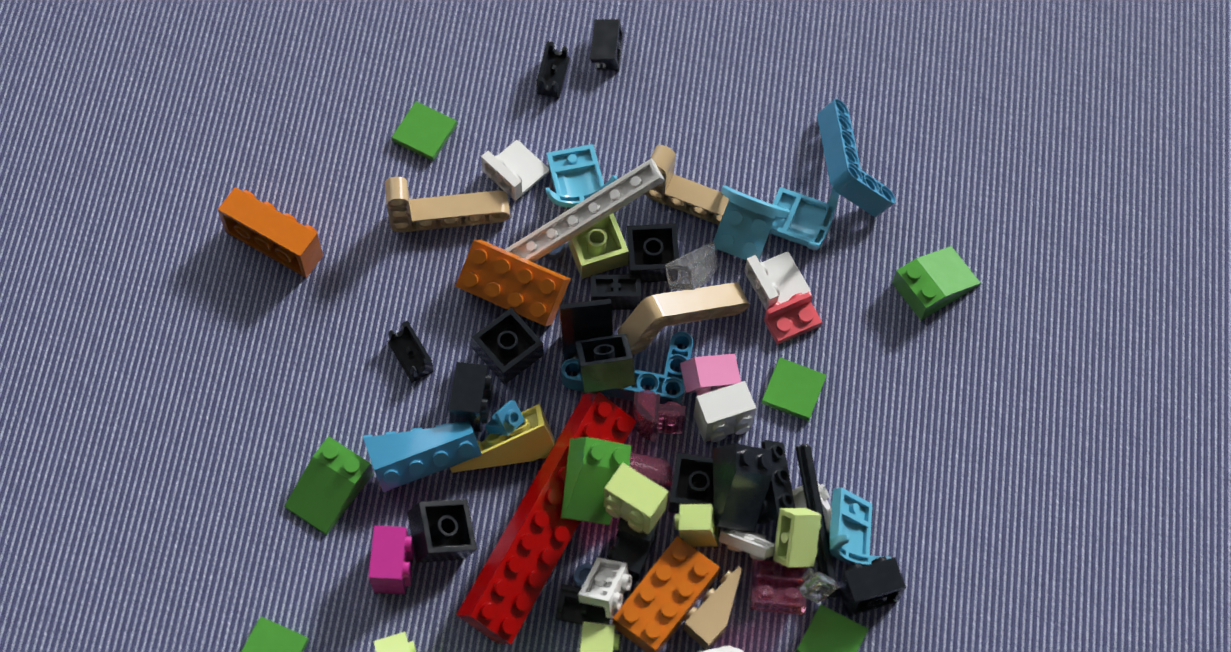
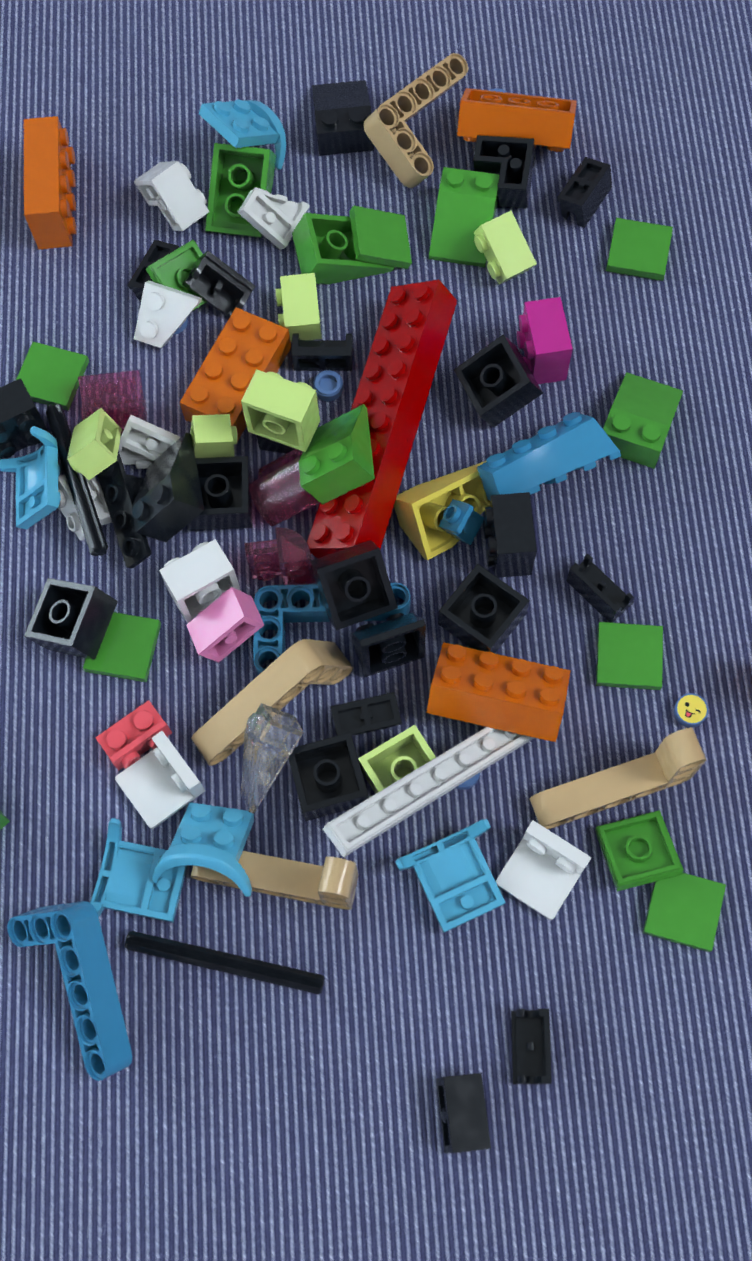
camera: 175 degrees right, 5 degrees up
(372, 254) = (690, 710): none -> light yellow tile
(404, 300) = (629, 656): none -> bright green tile
(443, 168) = (638, 850): none -> bright green tile
(606, 585) = (303, 354): white bracket -> none
(711, 618) = (179, 366): tan slope -> none
(747, 159) = (225, 962): none -> black axle
(817, 586) = (68, 403): clear tile -> none
(831, 403) = (71, 618): none -> black brick

